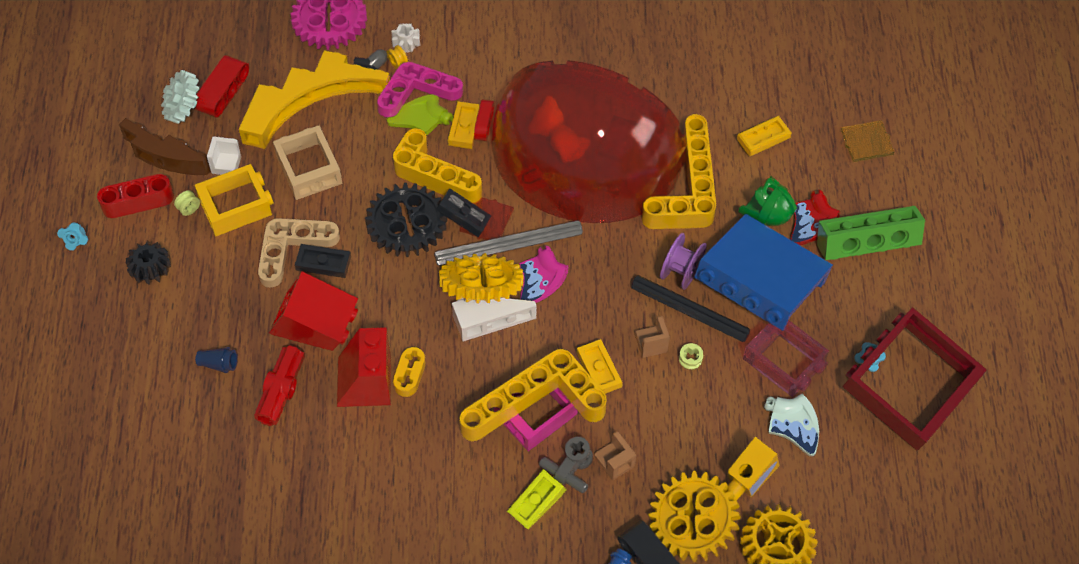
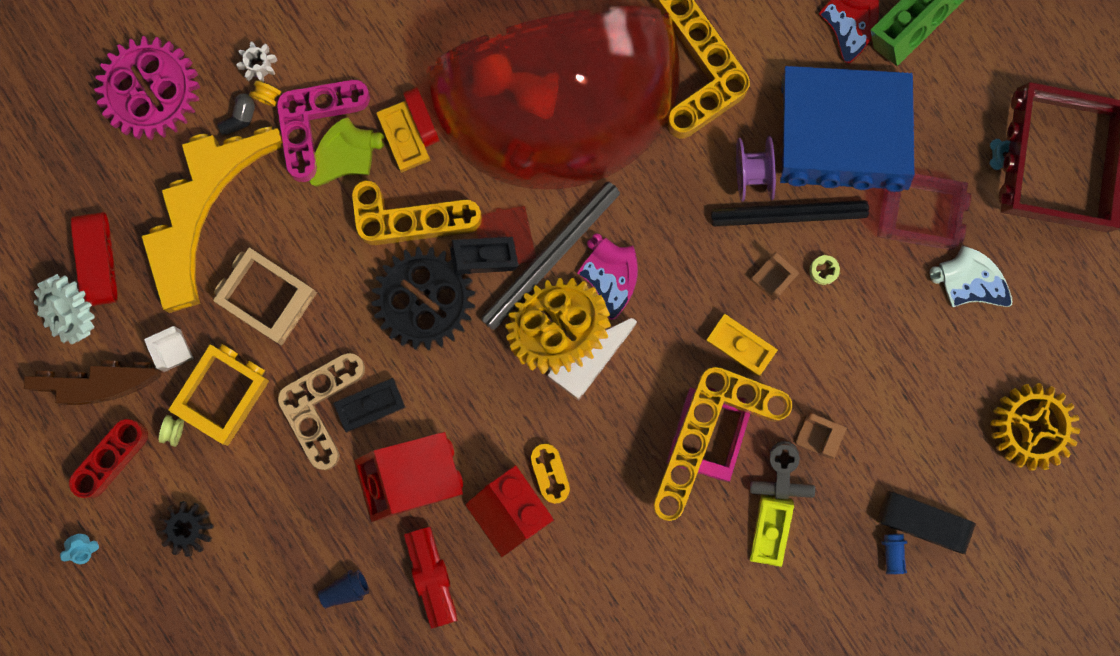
camera: 30 degrees left, 25 degrees up
(720, 515) = (914, 466): yellow gear -> none
(755, 460) = (968, 357): yellow torso -> none
(770, 206) = (800, 36): green helmet -> none

